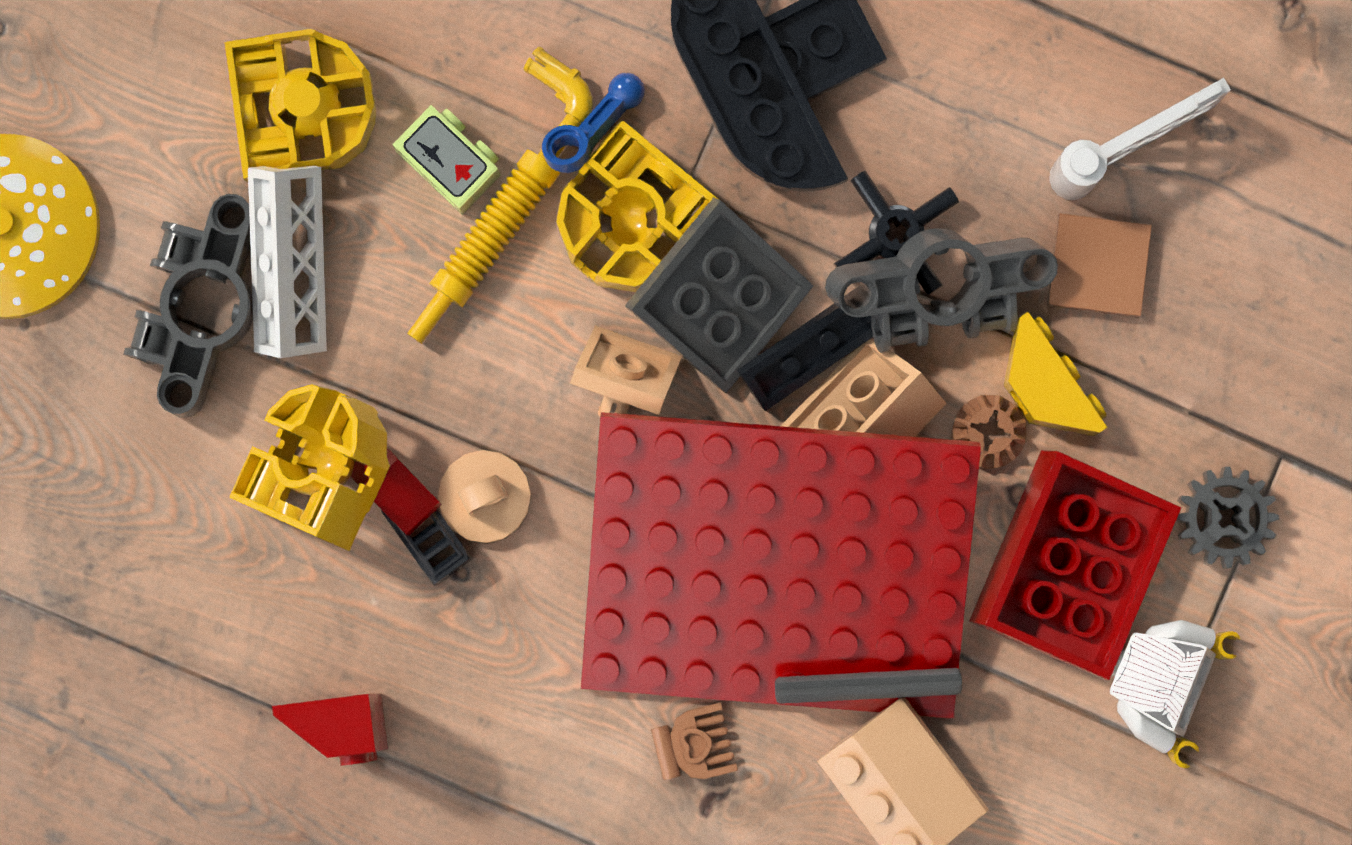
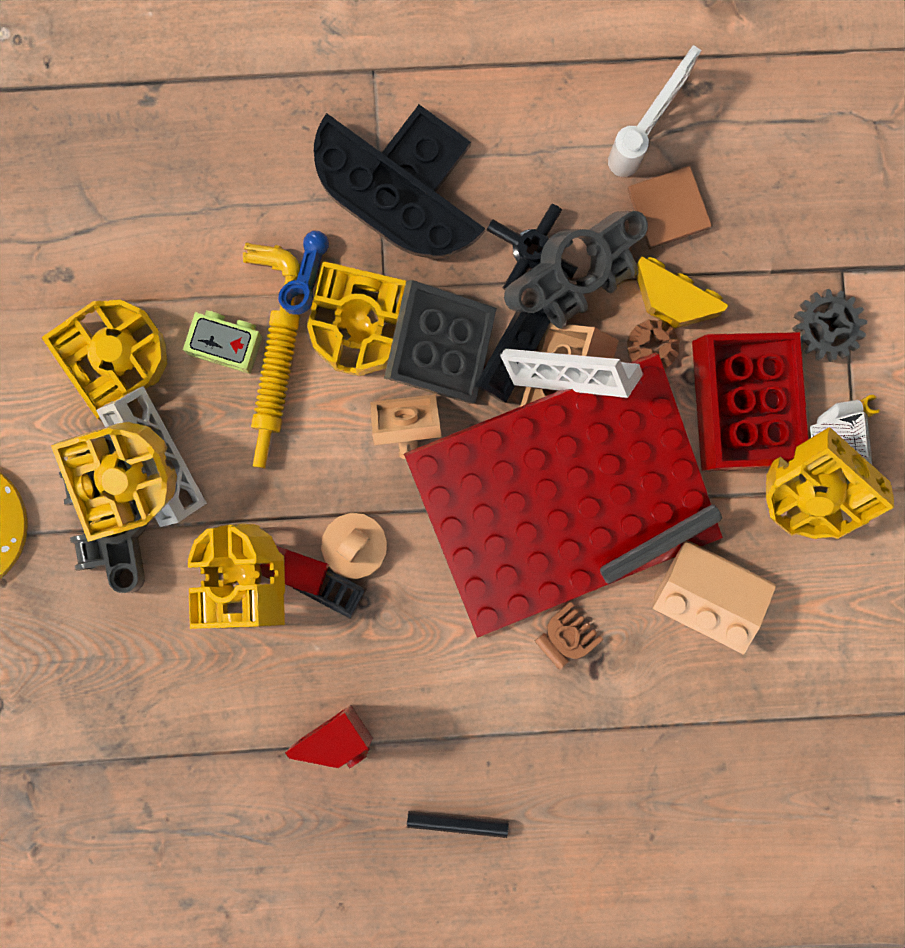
camera: 30 degrees left, 0 degrees up
(205, 303) = (112, 510): none -> yellow connector
(860, 415) = (573, 372): none -> white fence
(1146, 745) = (828, 463): none -> yellow connector

